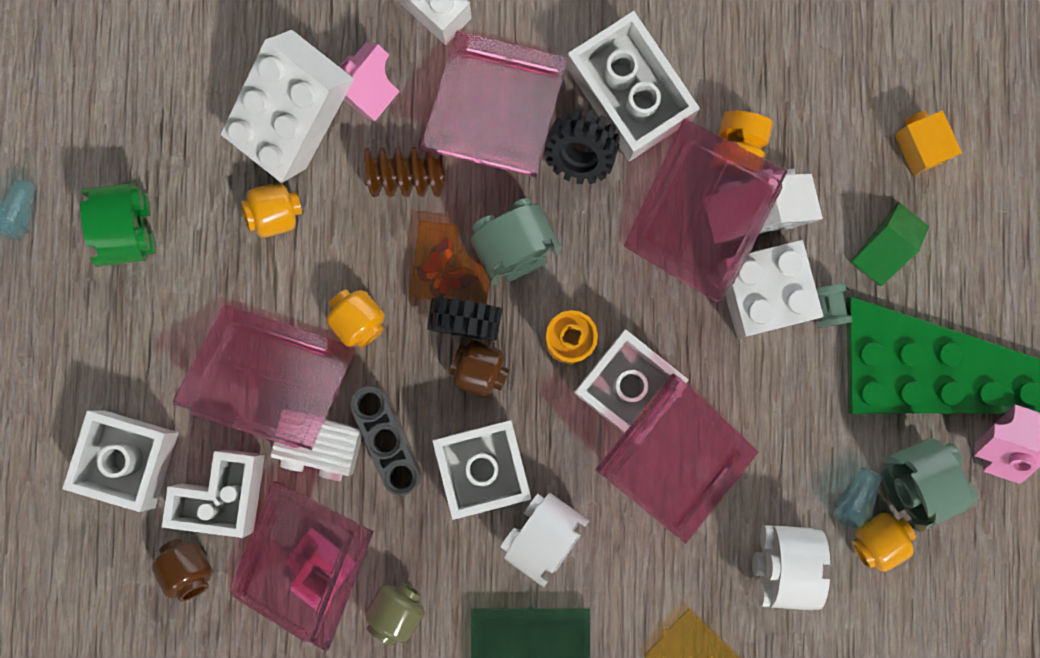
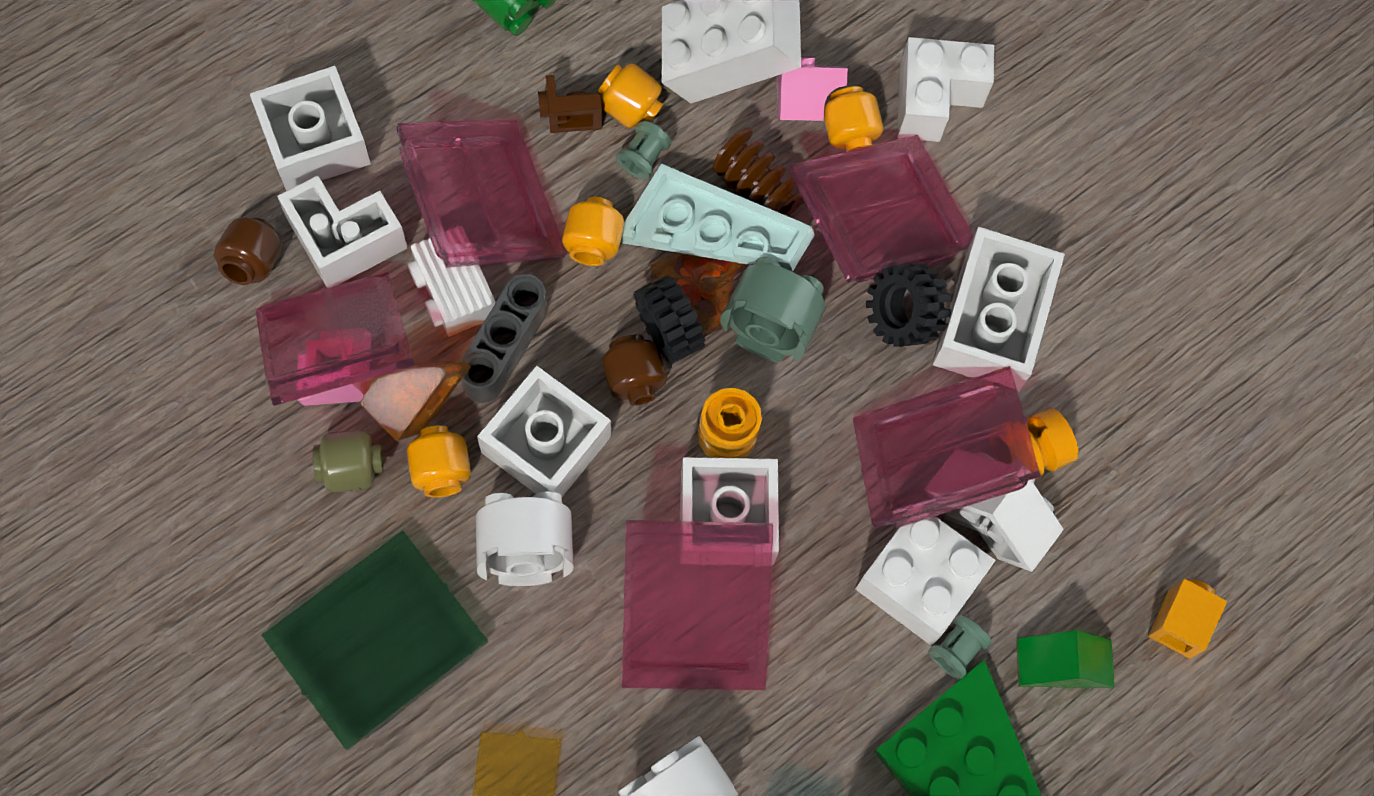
camera: 45 degrees right, 15 degrees down
(251, 258) = (571, 112): none -> reddish brown bracket
(319, 233) = (643, 150): none -> sand green bush
(389, 542) = (412, 396): none -> clear orange slope
(410, 235) = (709, 222): none -> light aqua wing
(413, 68) = (852, 118): none -> light orange head
(442, 551) = (438, 462): none -> light orange head

